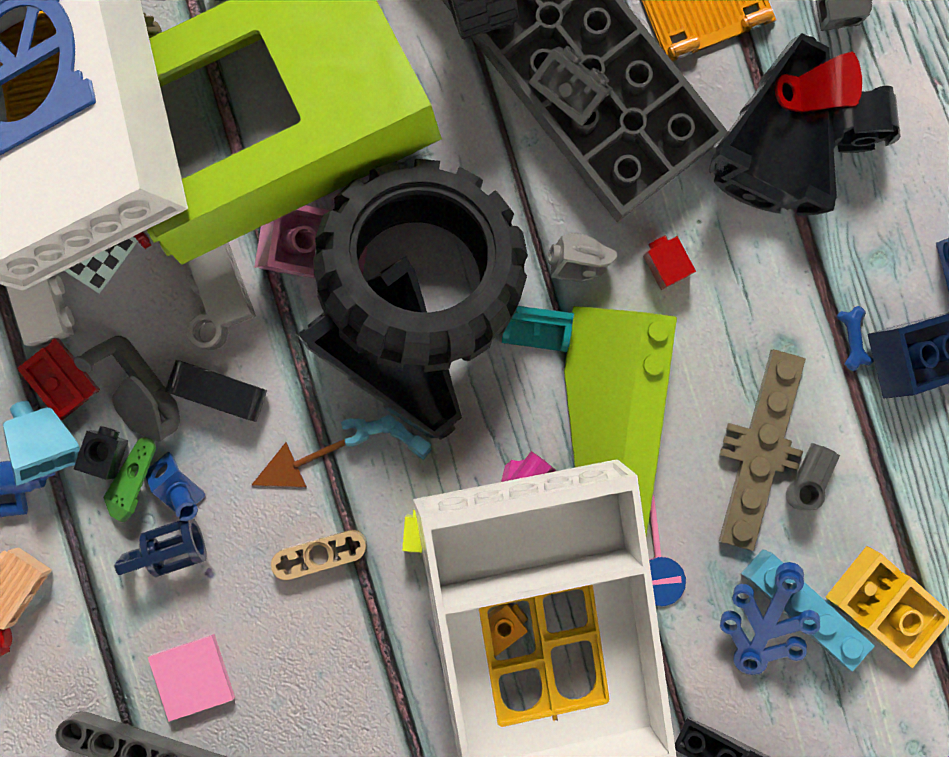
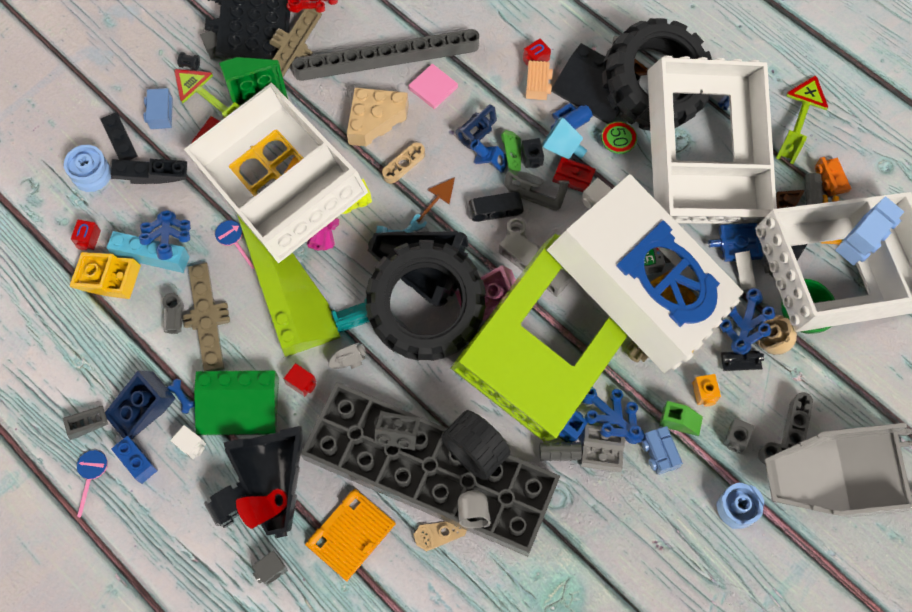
camera: 155 degrees right, 20 degrees down
(318, 670) = (375, 114): none -> tan brick
(779, 280) = (236, 402): none -> green slope
(877, 252) = (188, 442): none -> white brick
(894, 696) = (85, 235): none -> red brick

